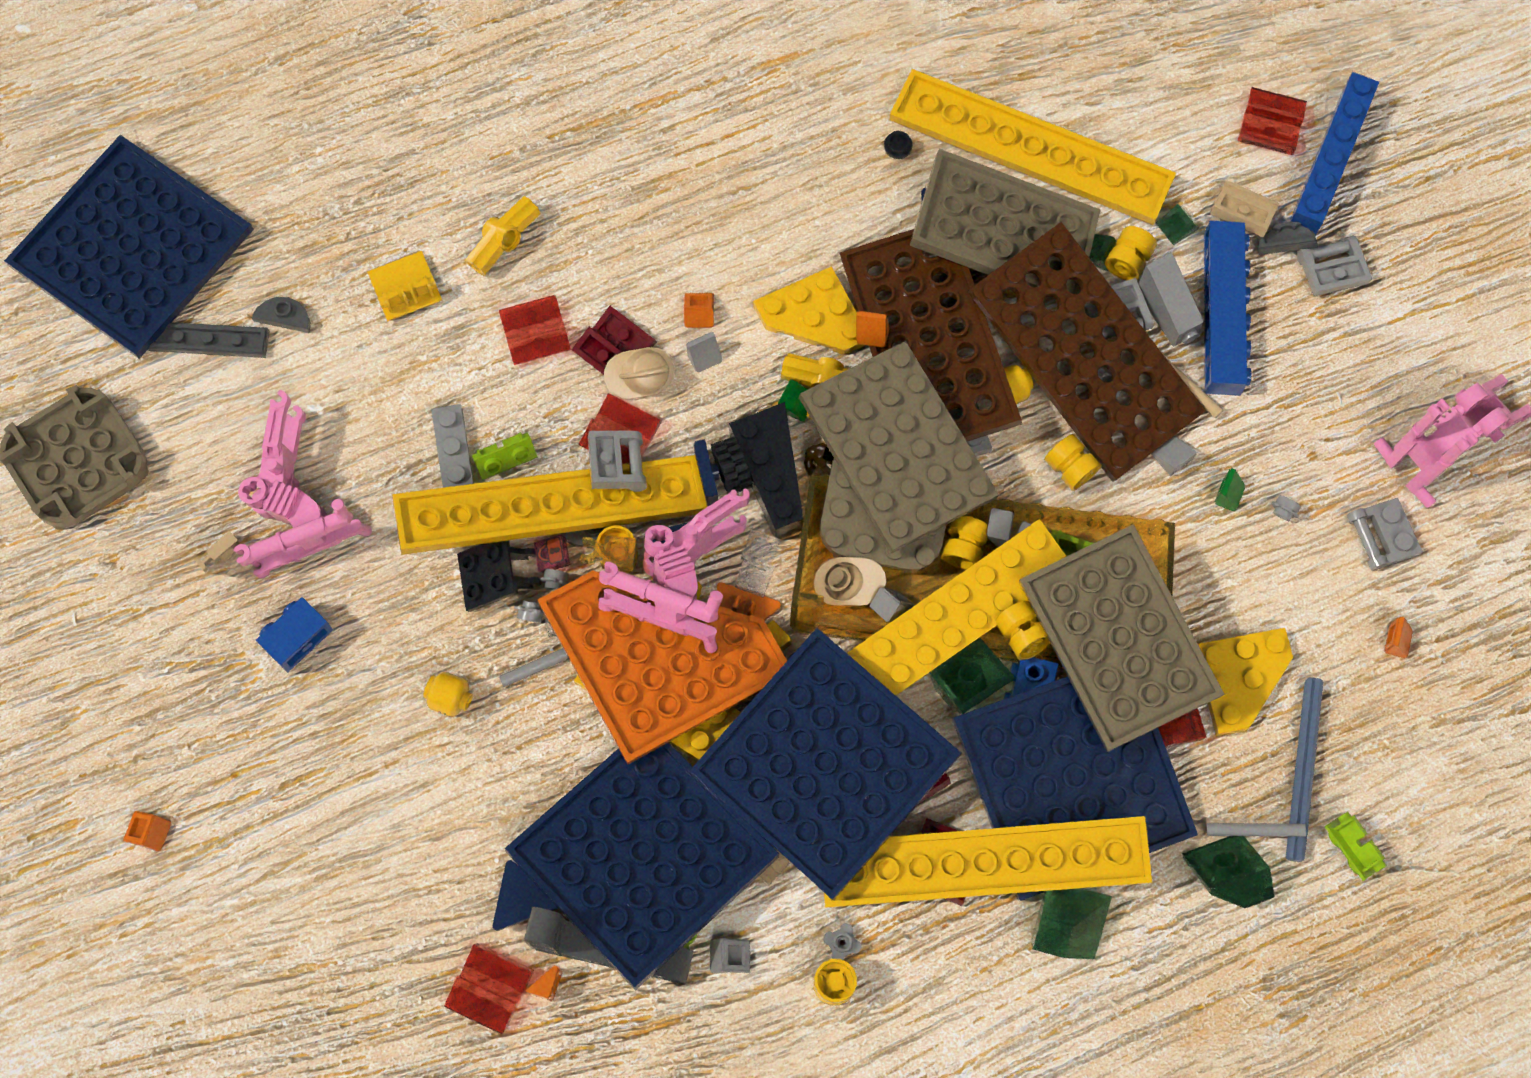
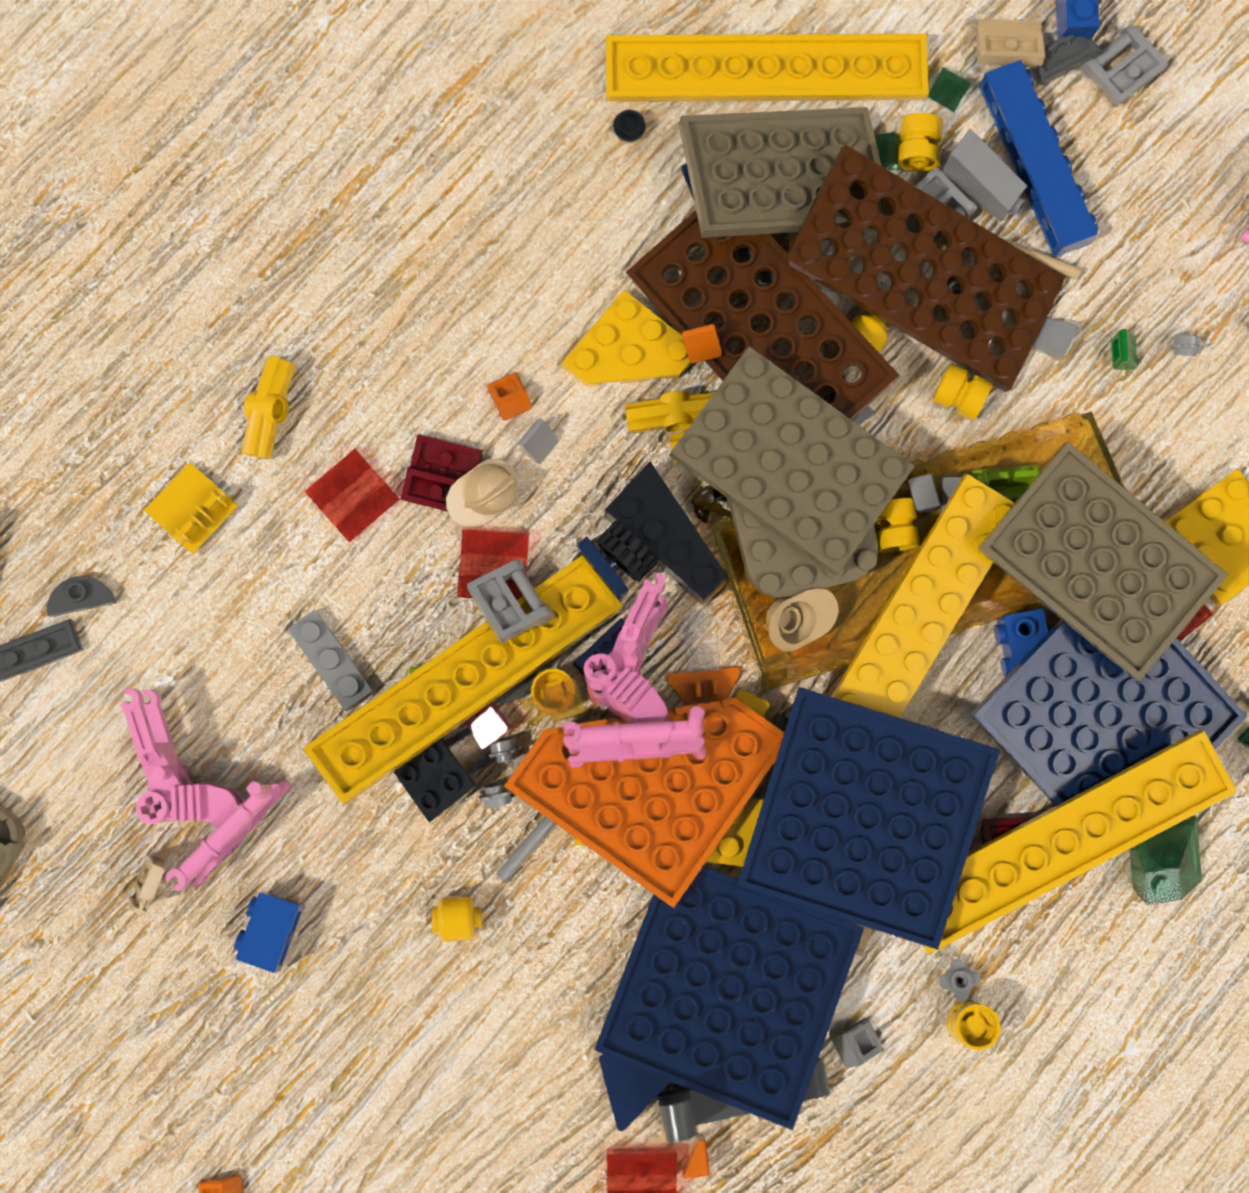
camera: 30 degrees left, 10 degrees up
(496, 460) = (378, 655): lime hinge -> none
(792, 402) = (656, 448): green slope -> none
(890, 604) = (853, 622): light grey slope -> none
(970, 677) = (969, 664): clear green slope -> none
(1023, 629) = (990, 585): yellow wheel -> none

